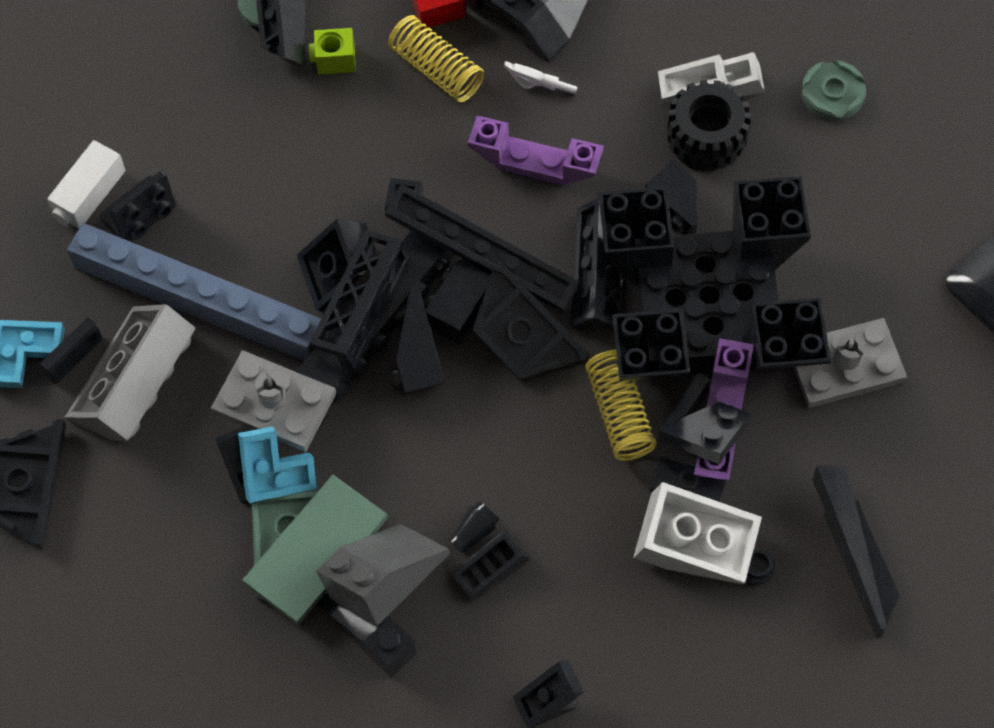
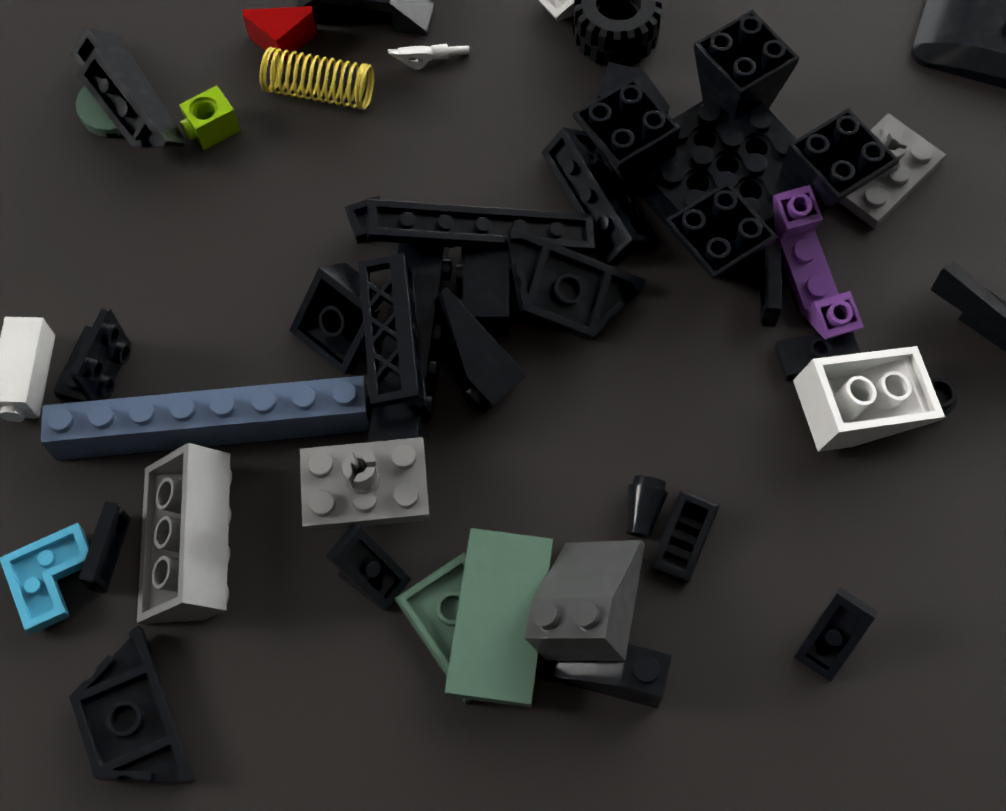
camera: 30 degrees left, 0 degrees up
(267, 474) = (400, 562): medium azure plate -> none
(526, 158) = (475, 127): medium lavender slope -> none
(634, 437) = (750, 333): light yellow piece -> none
(707, 432) = (816, 290): black wing -> none

